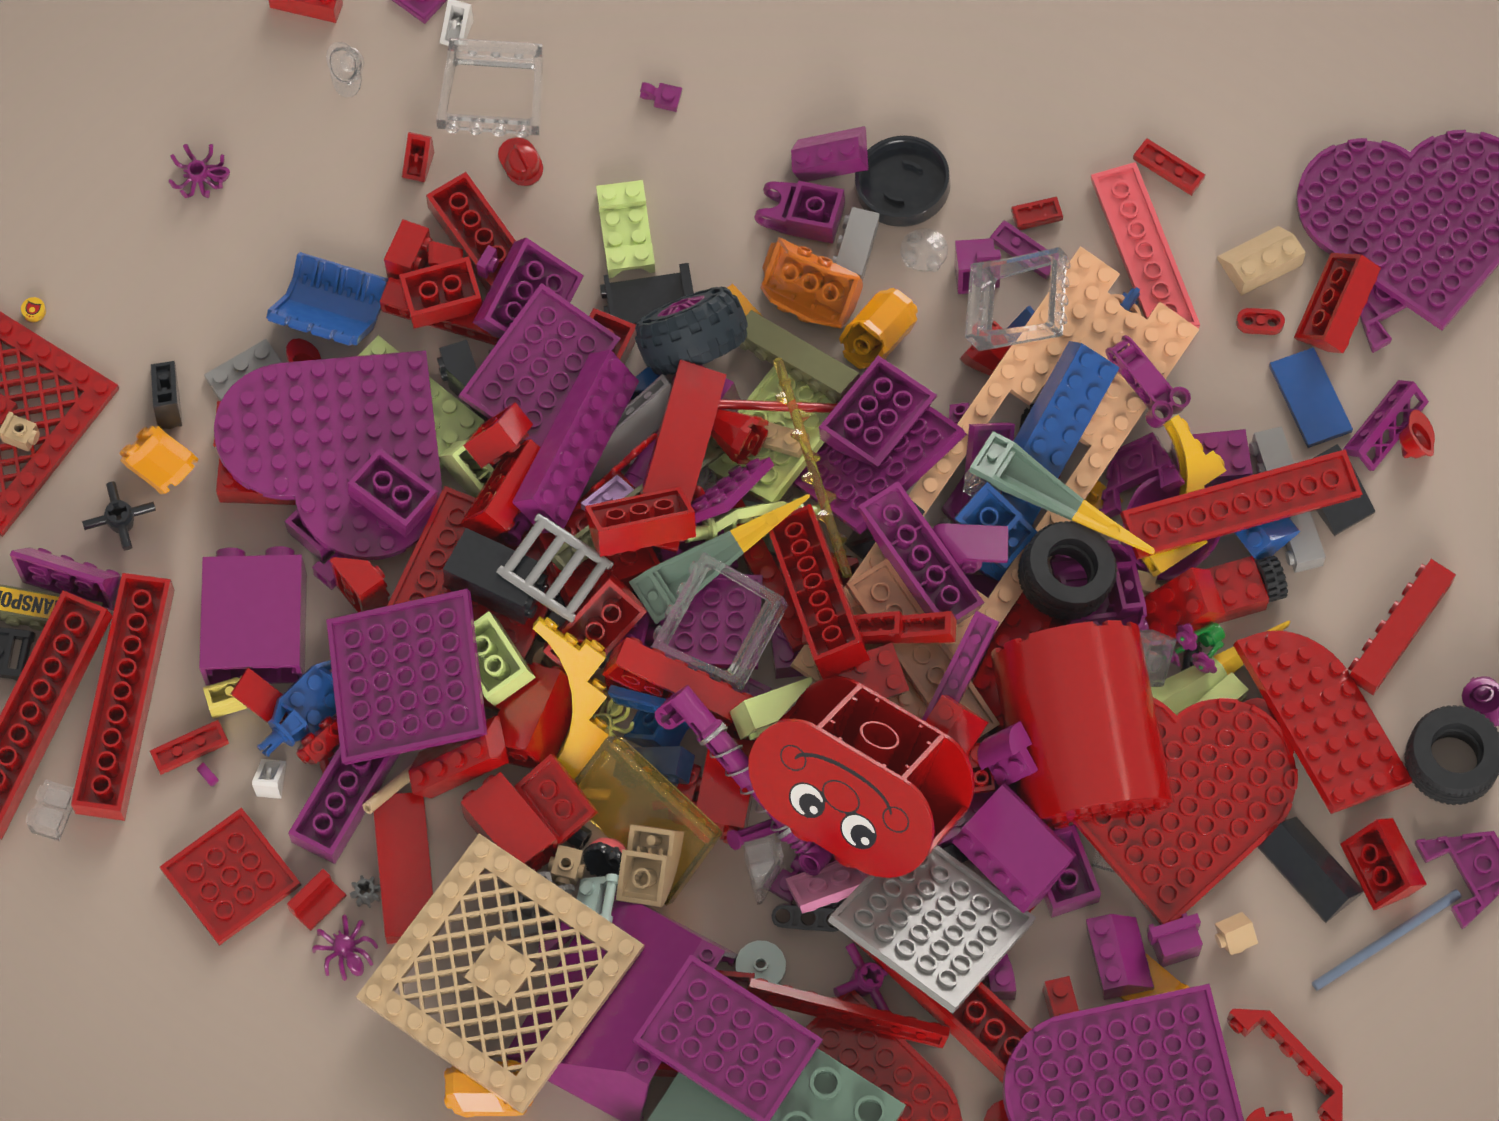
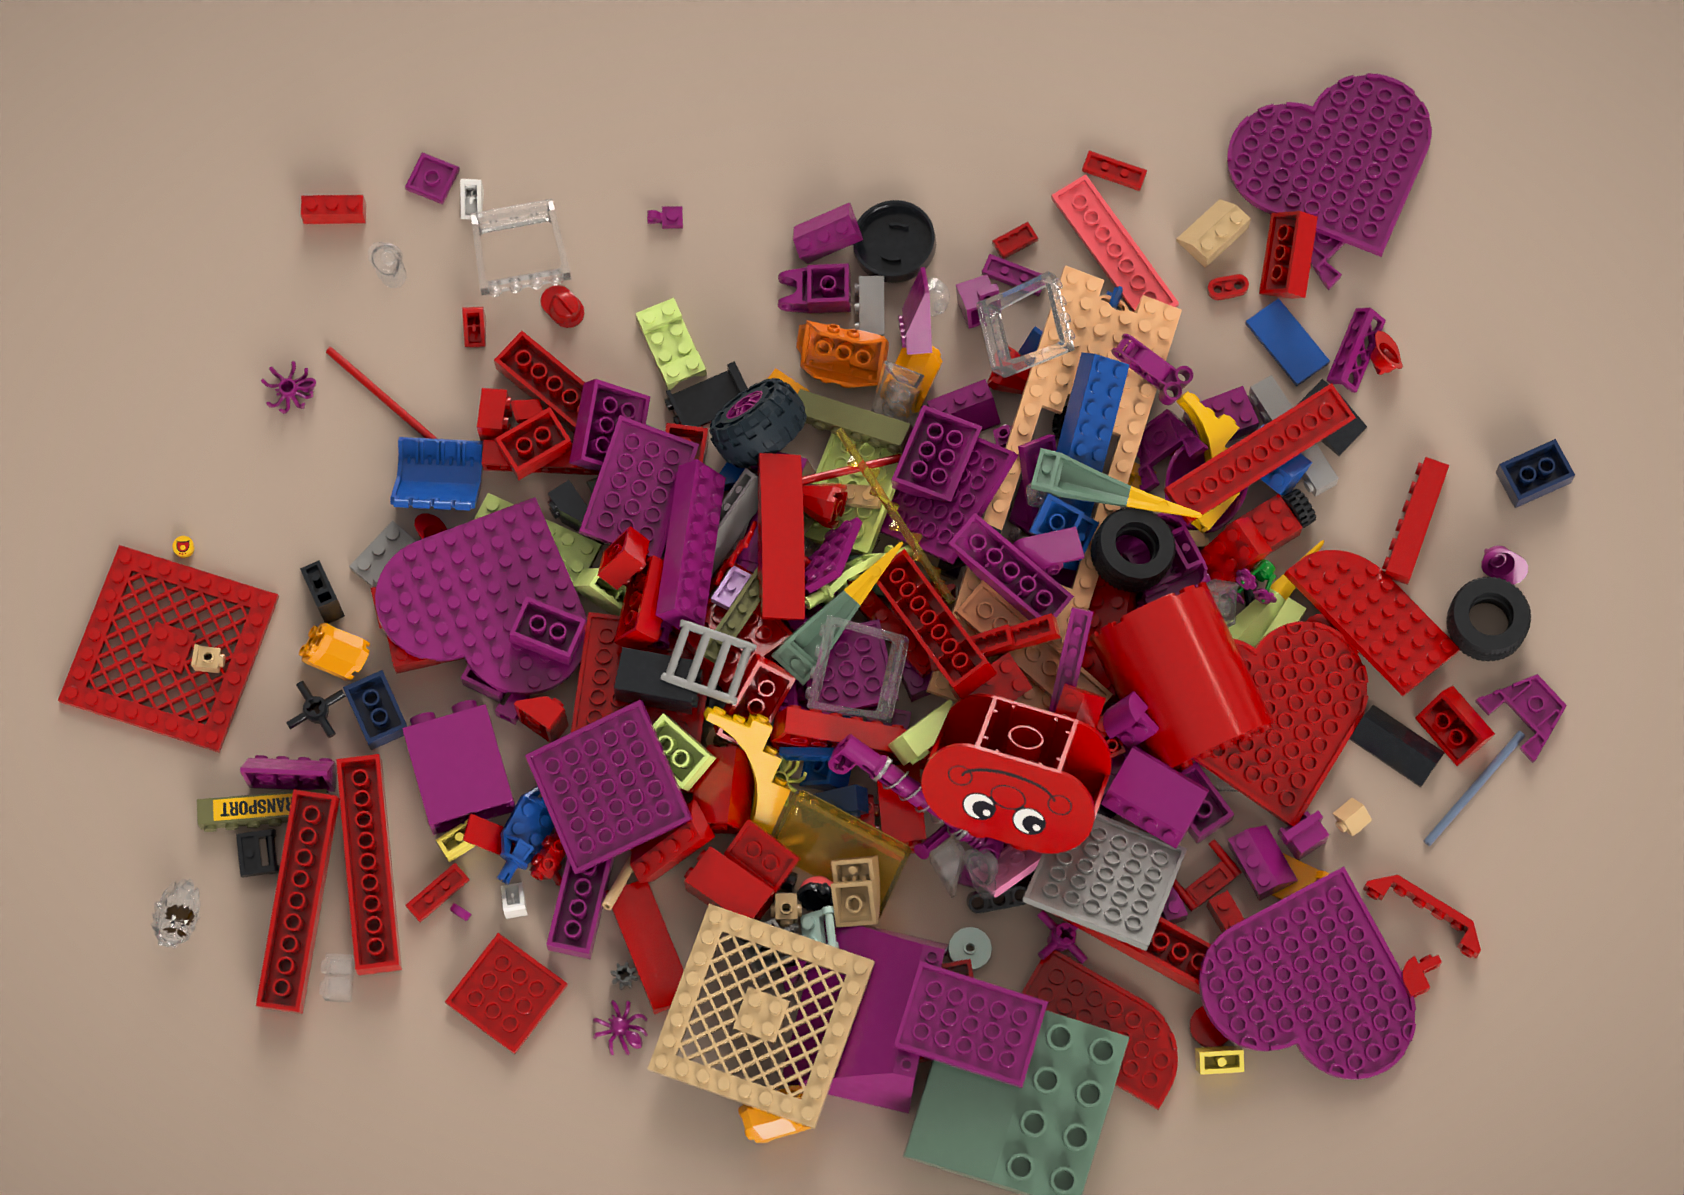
camera: 15 degrees left, 5 degrees up
(183, 532) = (376, 709): none -> dark blue brick
(294, 202) = (379, 393): none -> red piece
(316, 900) = (584, 994): red panel -> none
(488, 262) = (566, 407): magenta plate -> none
(641, 521) = (769, 603): red slope -> none
(797, 879) = (983, 870): none -> clear piece
(849, 1013) = (1056, 970): red plate -> none
(857, 337) = (897, 392): none -> clear slope
(899, 270) = (916, 317): none -> slope
(936, 371) = (970, 403): none -> magenta slope
(1053, 964) = (1211, 881): none -> red plate

